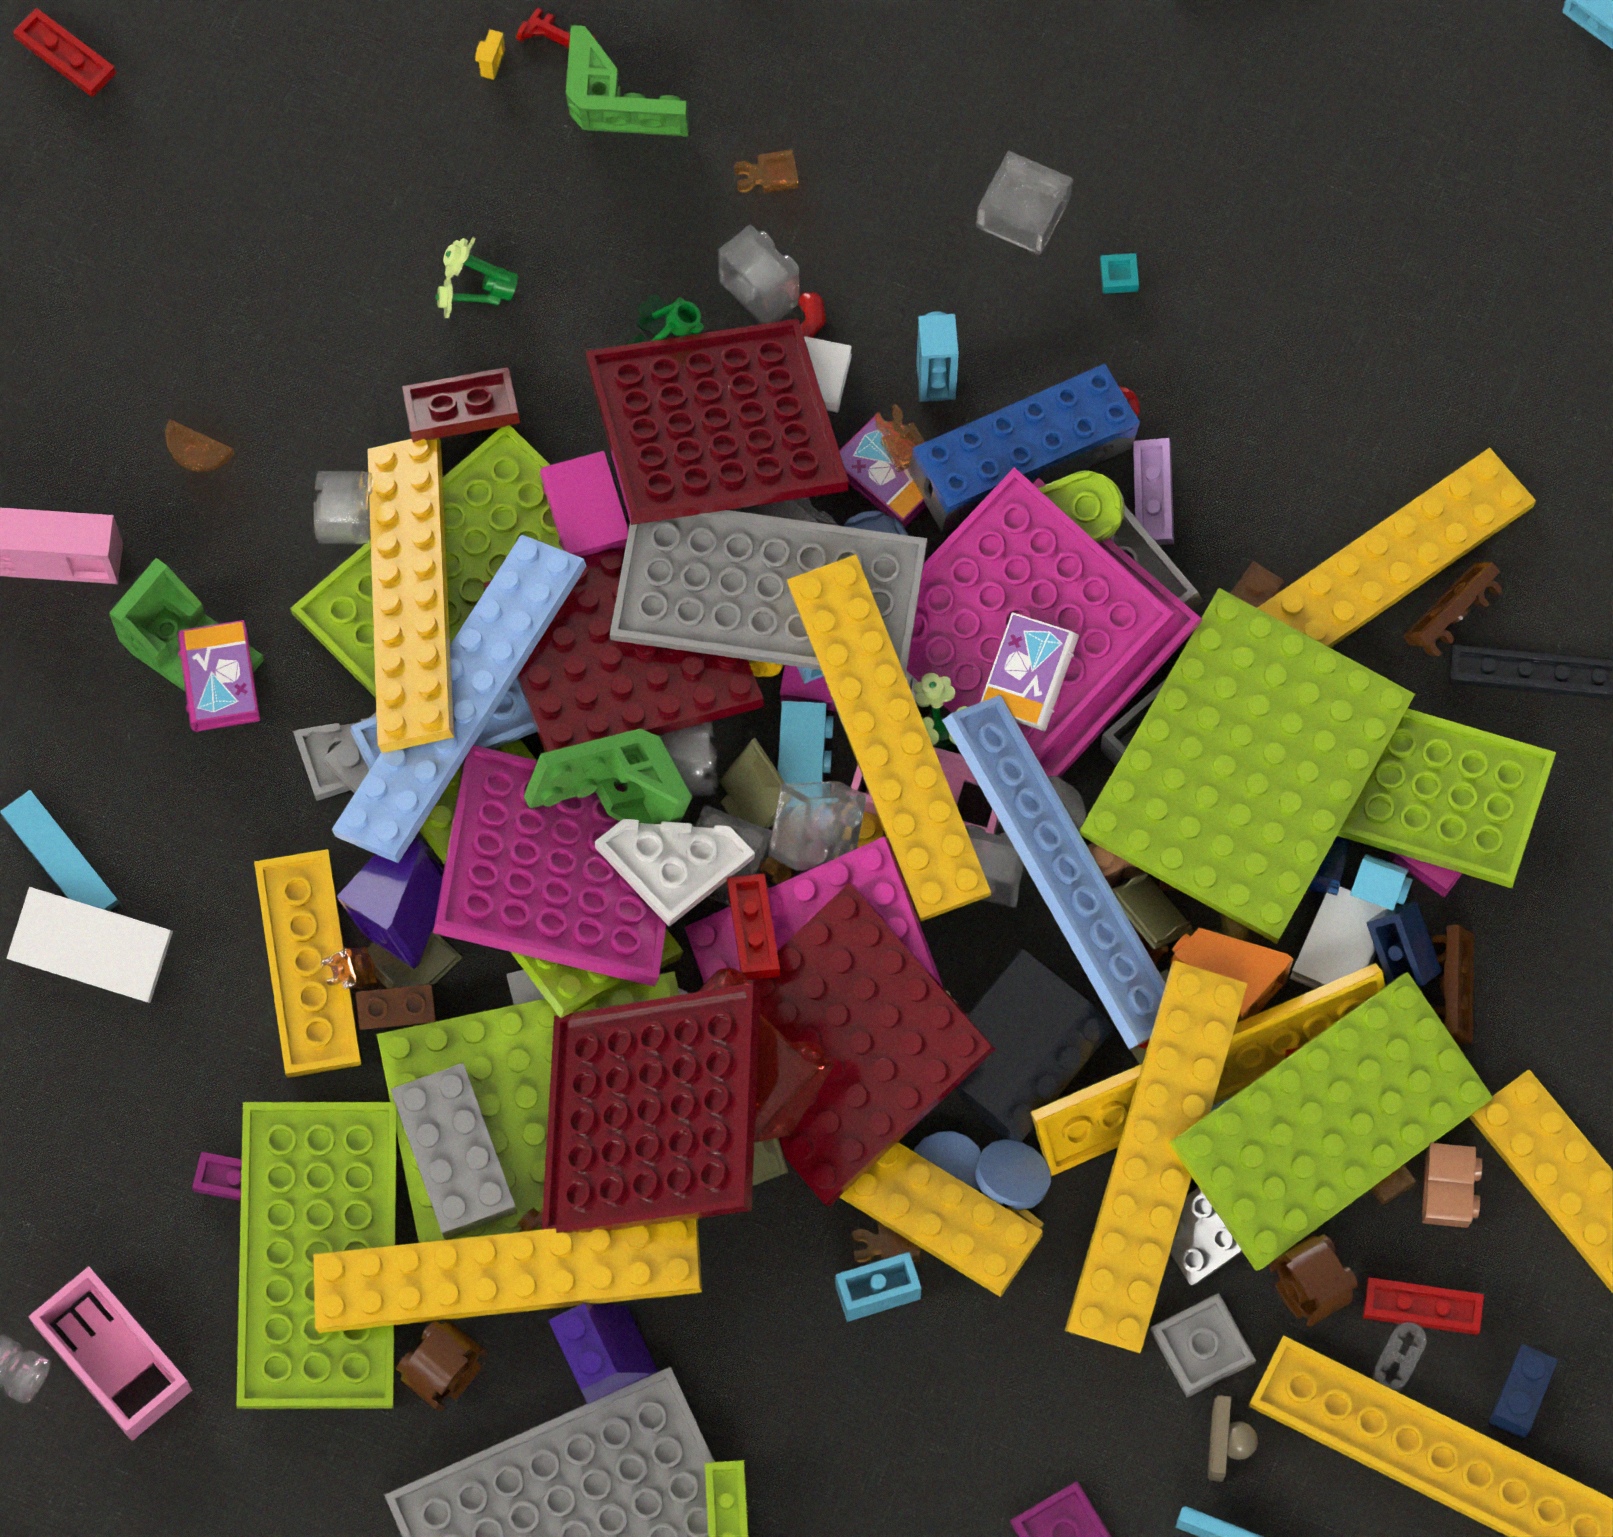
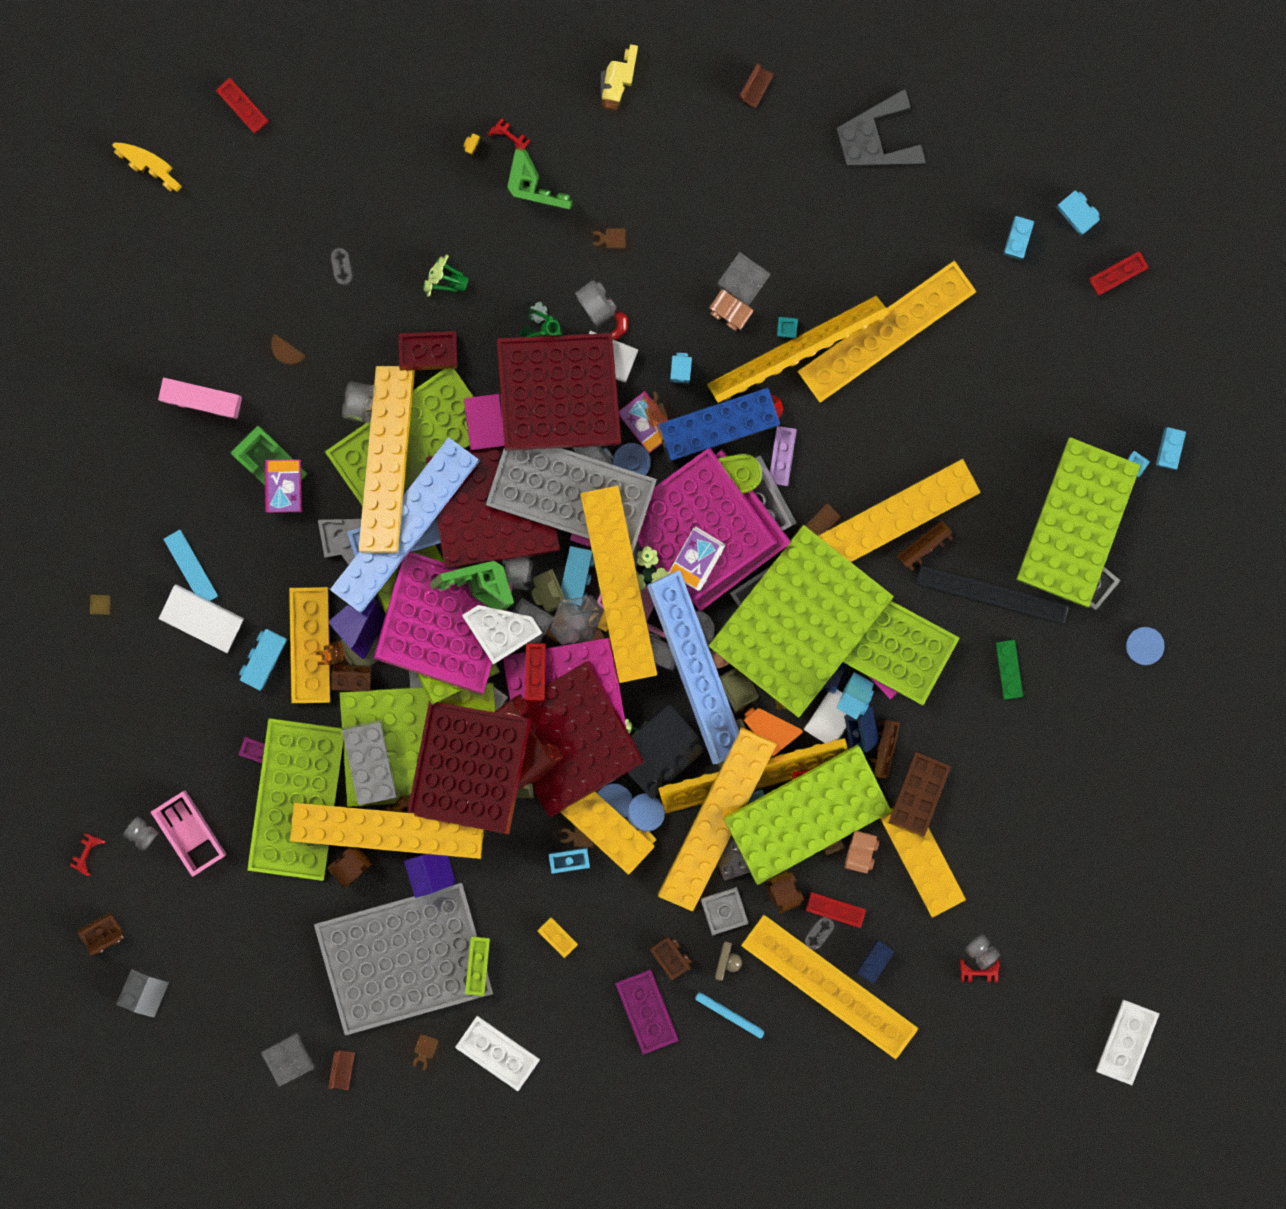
camera: 10 degrees right, 20 degrees up
(219, 1001) = (262, 659): none -> medium azure brick
(273, 294) = (346, 265): none -> clear beam
(879, 1446) = (557, 937): none -> yellow plate
(1010, 258) = (731, 310): none -> nougat brick
(1114, 1449) = (670, 957): none -> reddish brown bracket
(1138, 307) = (797, 349): none -> yellow plate
(1301, 255) = (880, 338): none -> yellow plate
(1508, 63) = (1018, 238): none -> medium azure brick
(1541, 1056) = (919, 794): none -> reddish brown plate

